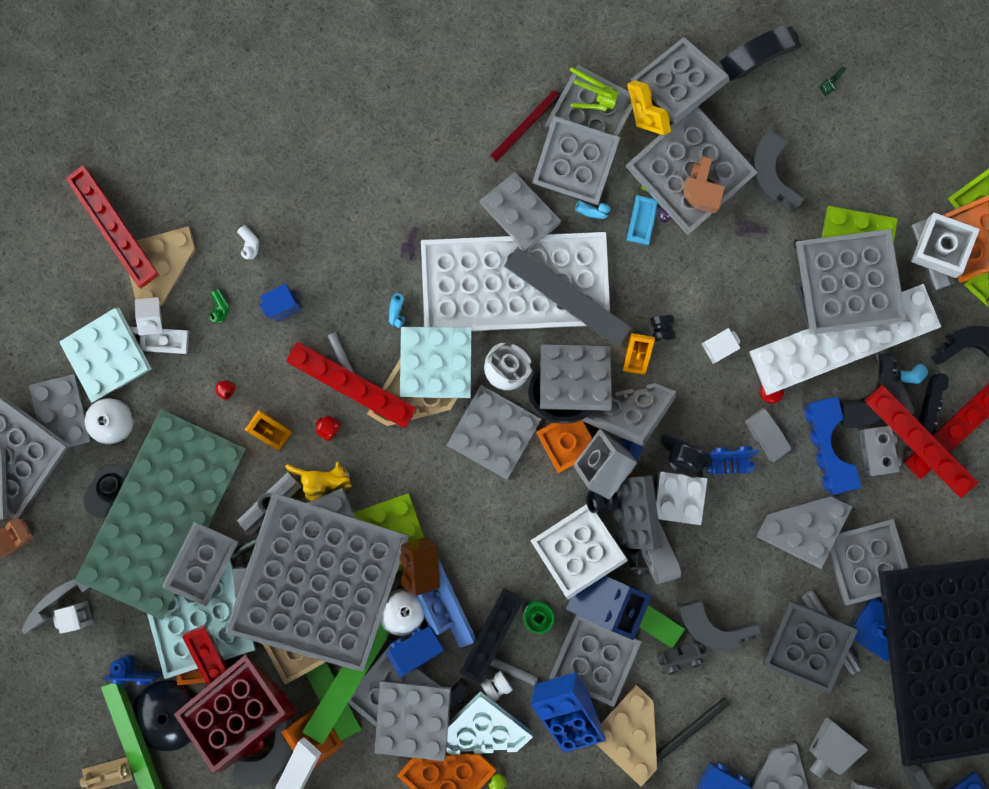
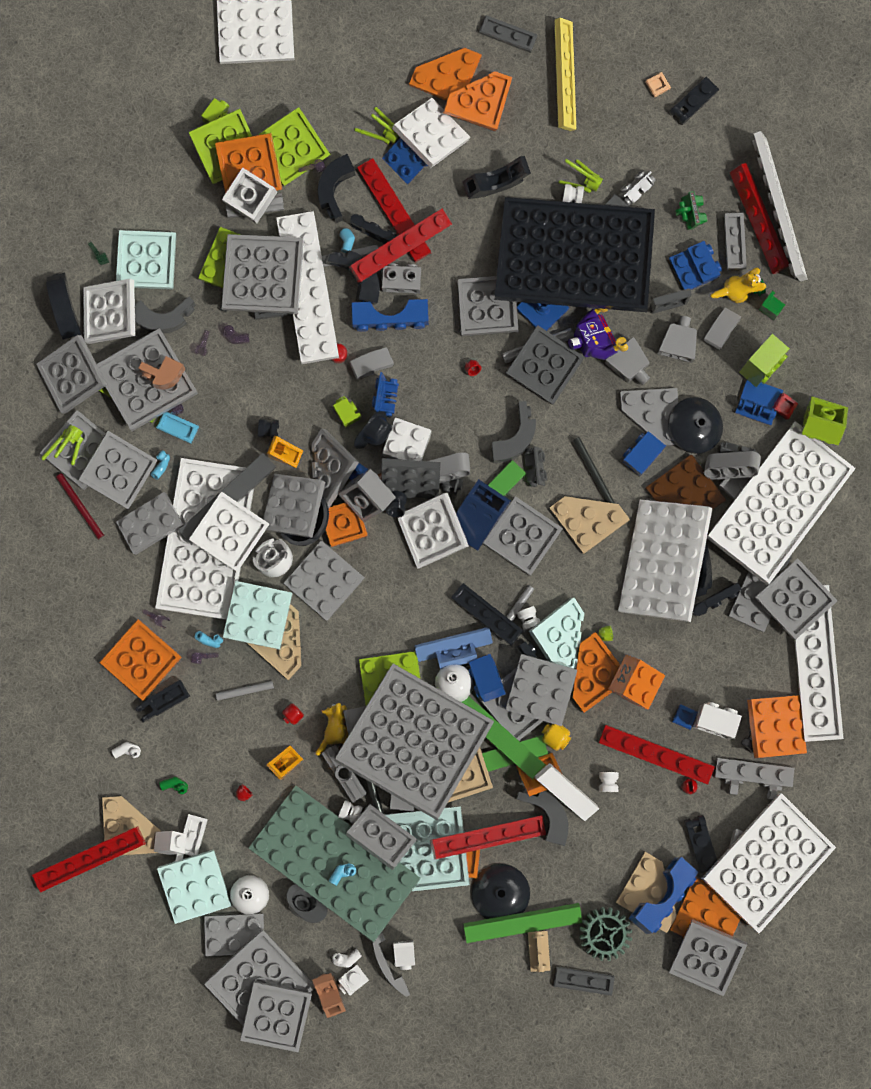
camera: 80 degrees left, 5 degrees down
(32, 561) = (352, 980): none -> white bracket
(54, 549) = (346, 960): none -> white arm
(124, 670) = (457, 919): blue hinge -> none
(150, 527) = (342, 871): none -> medium azure arm
(225, 525) = (354, 814): none -> white wheel
(234, 714) = (506, 831): dark red slope -> none
(280, 303) = (182, 731): blue brick -> none
(315, 274) = (164, 700): none -> black hinge
(351, 385) = (261, 687): red plate -> none
(357, 236) = (140, 660): none -> orange plate
(361, 747) = (556, 736): none -> yellow head
(372, 301) = (197, 657): none -> clear purple hand
(420, 566) = (419, 659): reddish brown brick -> none
(527, 307) = (229, 531): none -> white plate
(538, 617) = (479, 573): green wheel -> none
(567, 712) = (560, 565): blue slope -> none
(645, 114) = (92, 407): yellow plate -> none
(702, 417) = (346, 411): none -> lime brick
(721, 345) = (292, 385): white brick -> none
(765, 108) = (109, 311): none -> white plate
(765, 263) = (235, 338): none -> clear purple arm
(790, 560) = (468, 367): none -> red hinge
(806, 529) = (452, 348): light grey plate -> none
(837, 139) = (147, 258): none -> light aqua plate
(856, 703) = (595, 337): none -> dark purple torso

